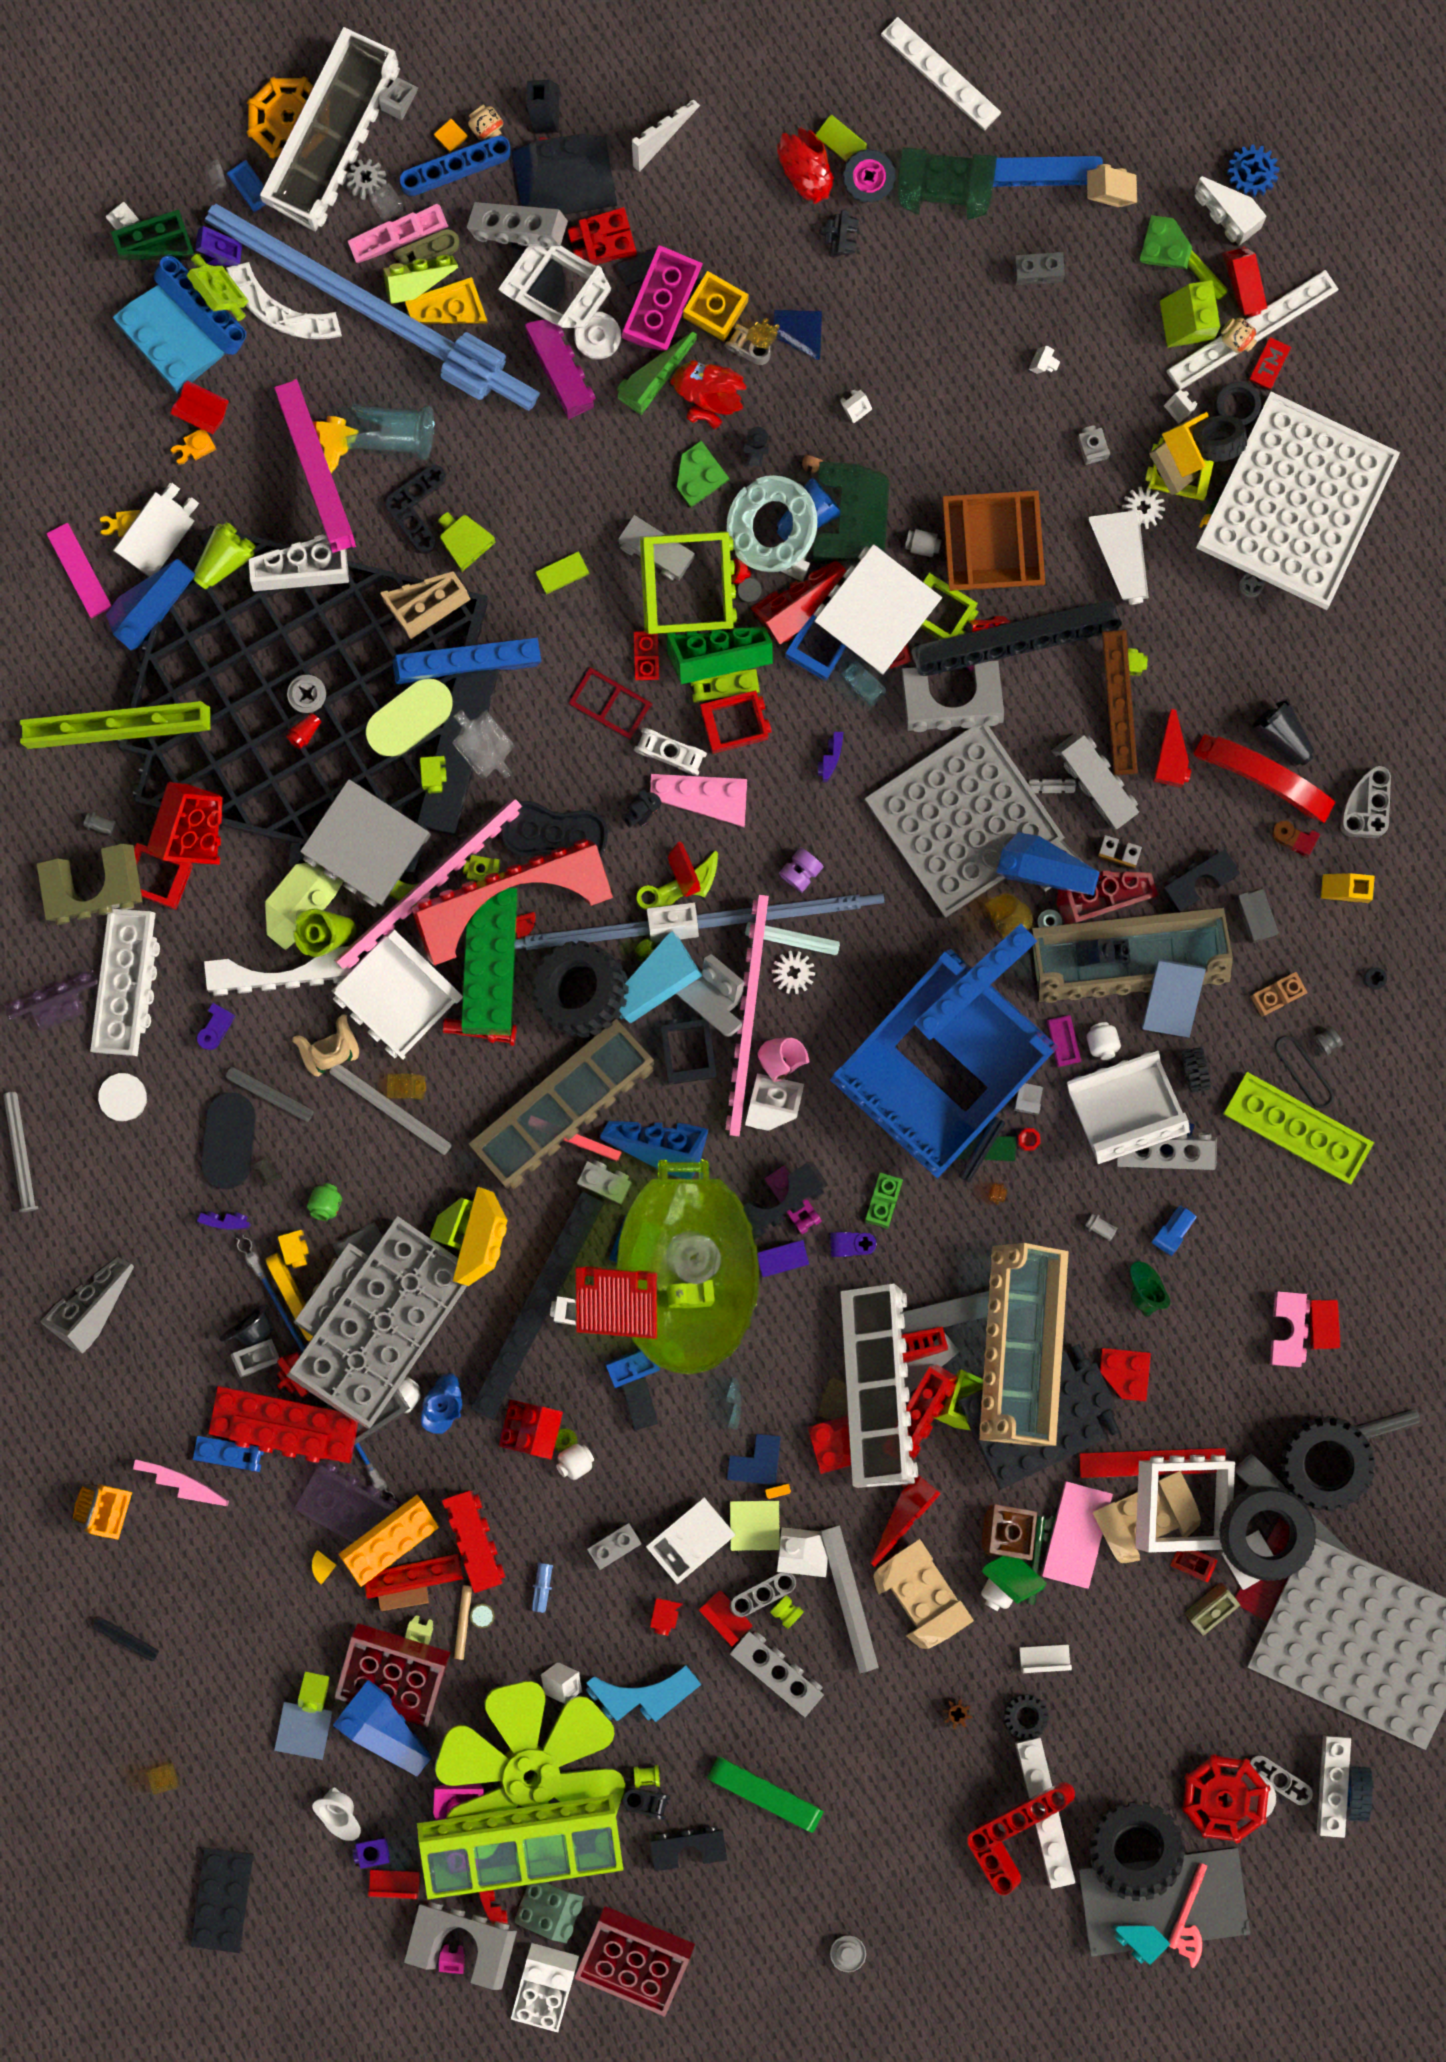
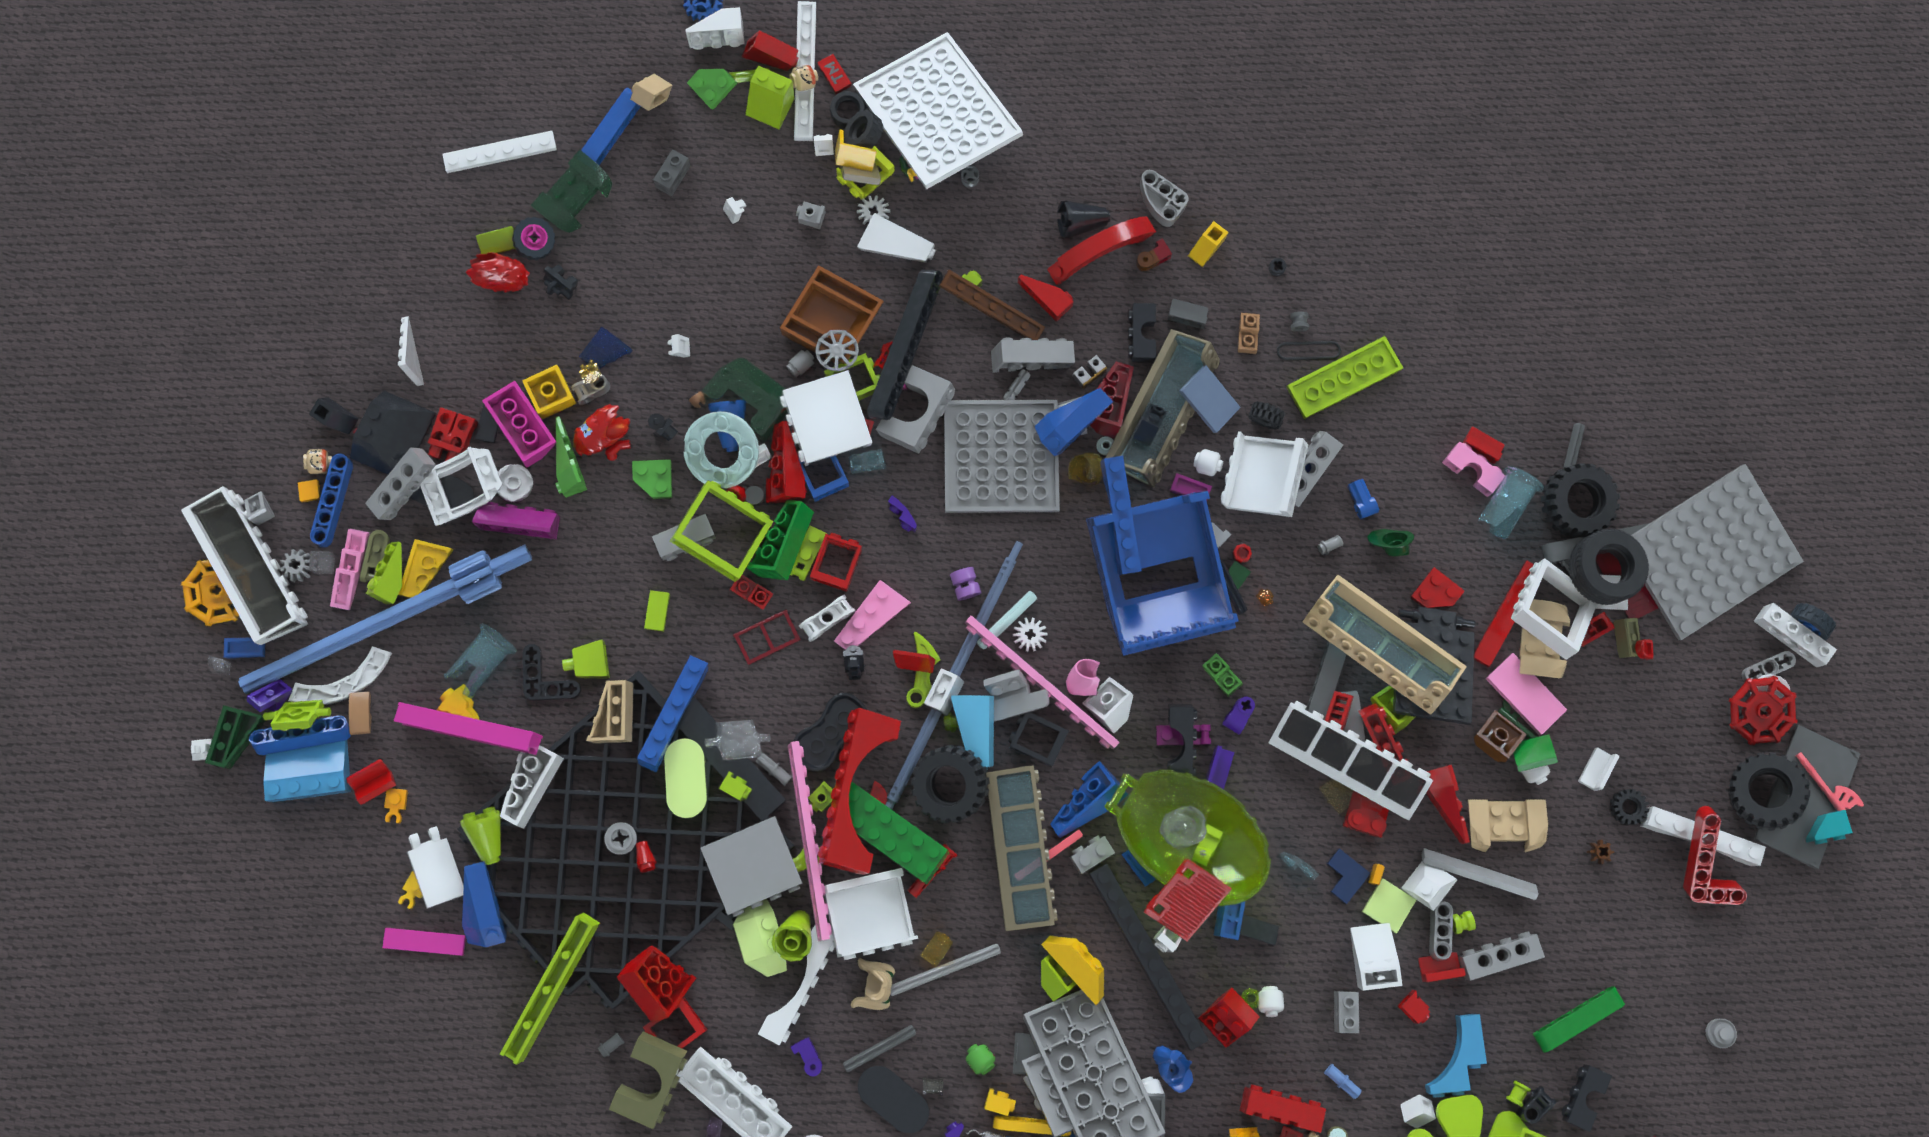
camera: 60 degrees left, 5 degrees down
(260, 347) = (359, 713): none -> medium nougat slope
(478, 801) = (773, 769): none -> light grey axle
(957, 571) = (837, 350): none -> light grey wheel
(1210, 1633) = (1644, 649): none -> red tile
(1273, 1388) = (1510, 501): none -> clear light blue piece

